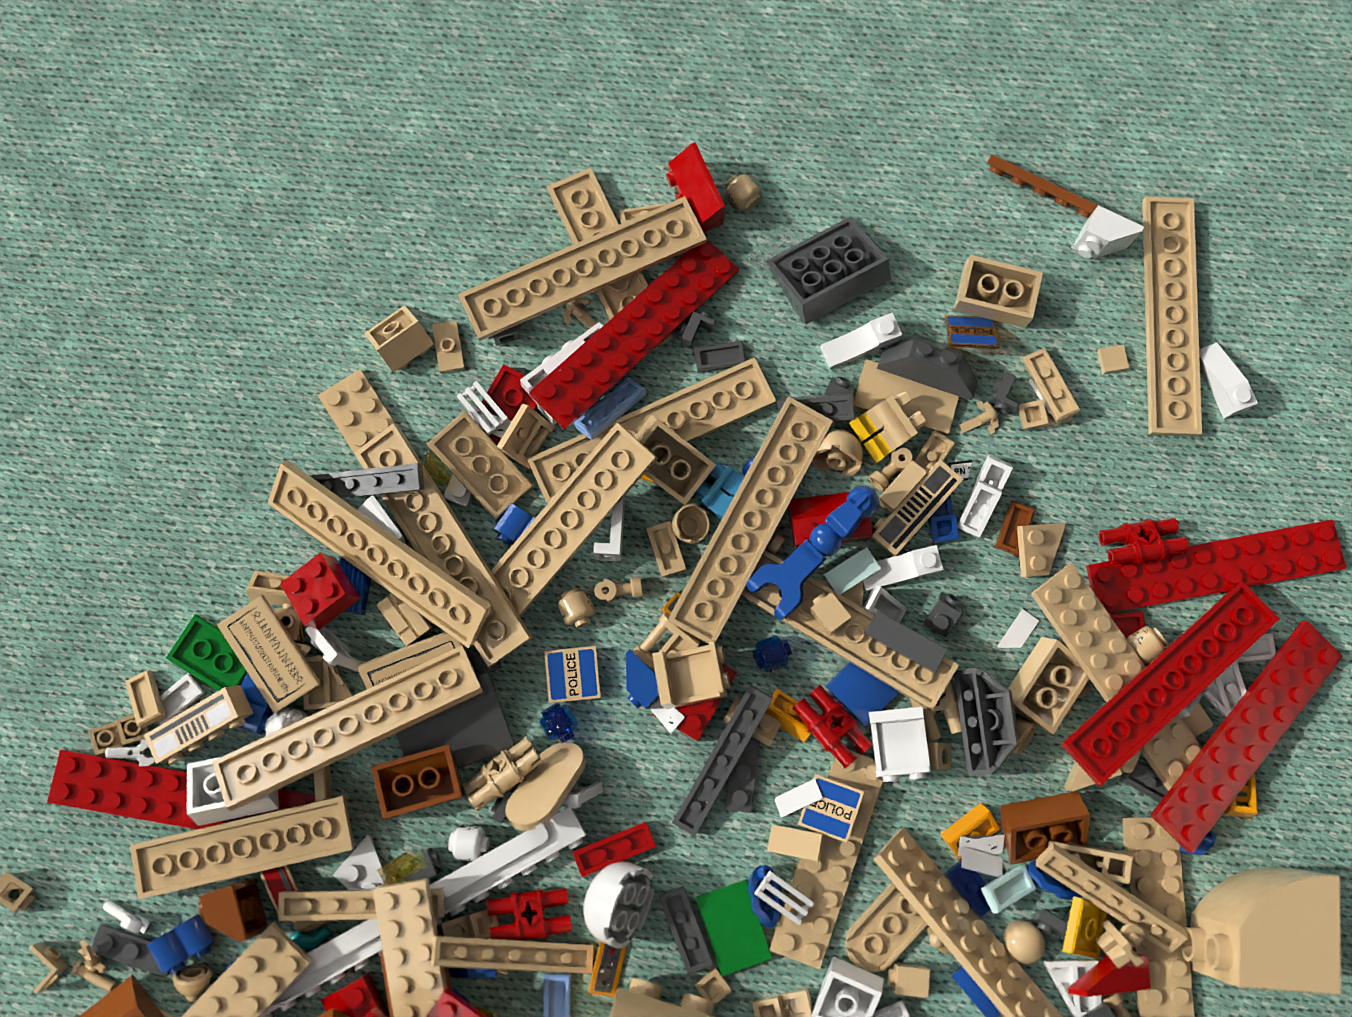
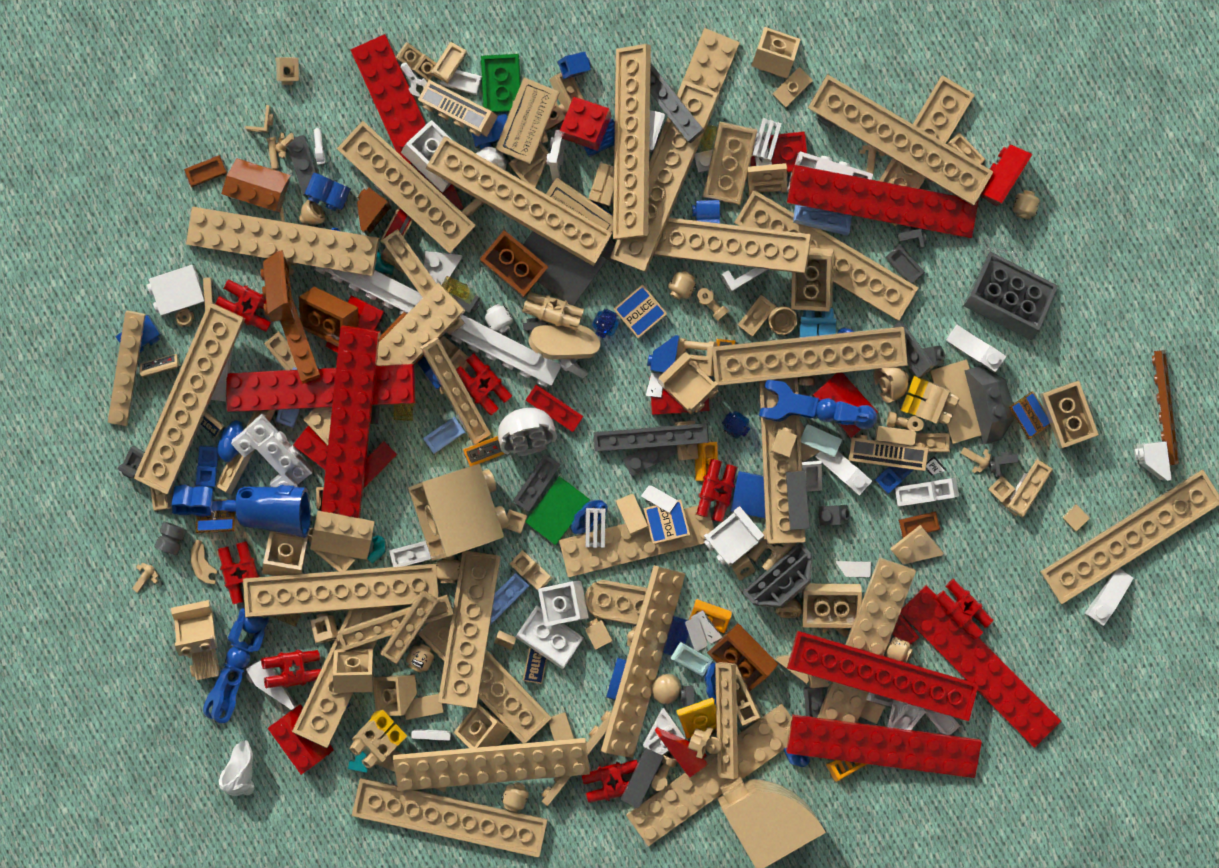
camera: 60 degrees right, 10 degrees up
(251, 560) = (574, 65): none -> blue brick

